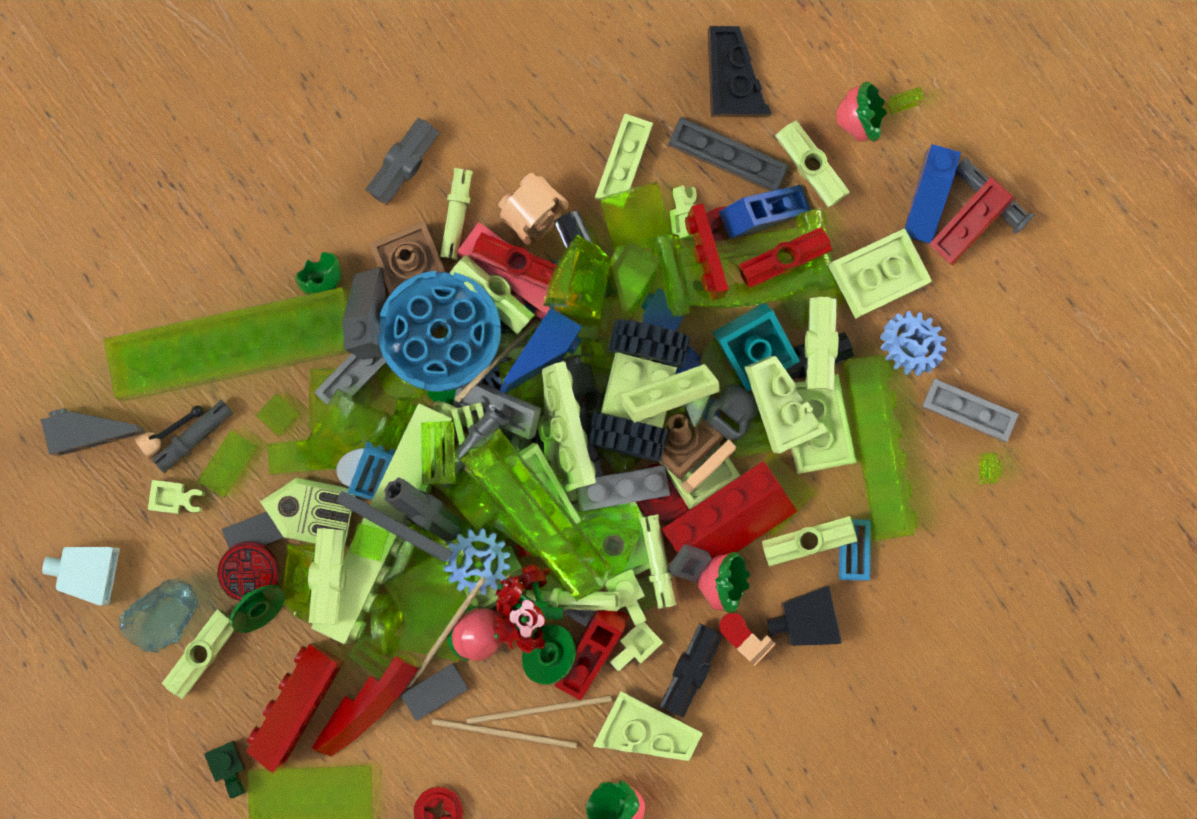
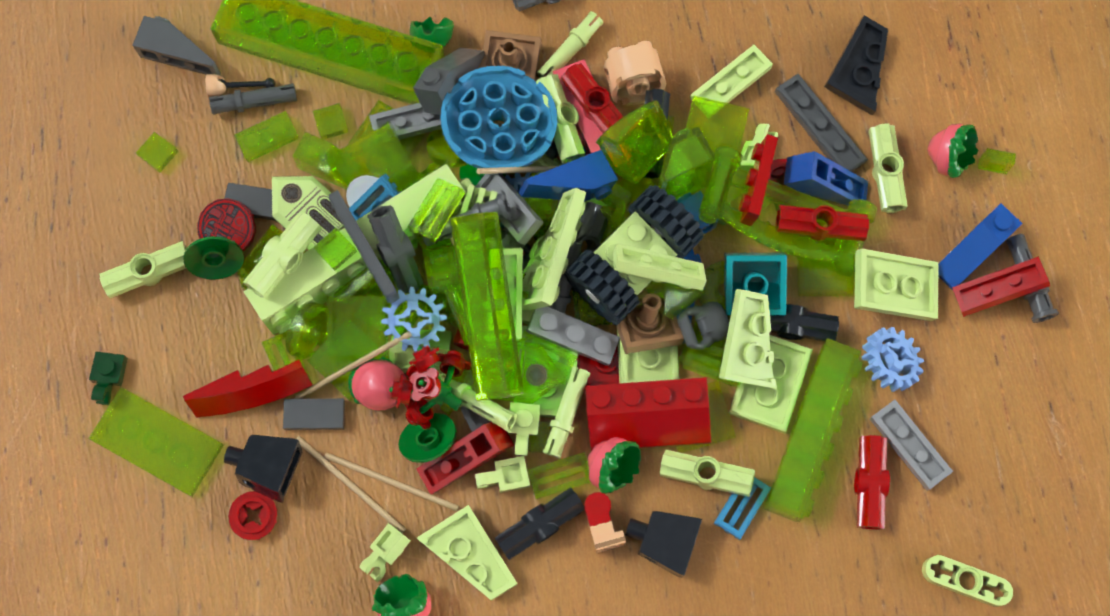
camera: 30 degrees right, 10 degrees down
(84, 572) = (100, 153): light aqua torso -> none
(135, 538) = (157, 152): none -> clear neon green tile
(155, 622) = (125, 219): clear light blue piece -> none
(170, 497) = (206, 135): yellowish green plate -> none
(294, 707) = (191, 357): red slope -> none
(422, 762) = (266, 464): none -> black torso
(572, 770) = (385, 549): none -> yellowish green plate
(666, 636) = (554, 465): none -> clear neon green tile
(690, 563) = (592, 428): dark grey tile -> none
(708, 466) = (656, 357): light nougat tile -> none
(821, 344) = (812, 311): yellowish green piece -> none
(954, 464) = (871, 482): none -> red piece
(989, 469) = (901, 503): clear neon green plate -> none
(1100, 489) = (991, 580): none -> yellowish green beam

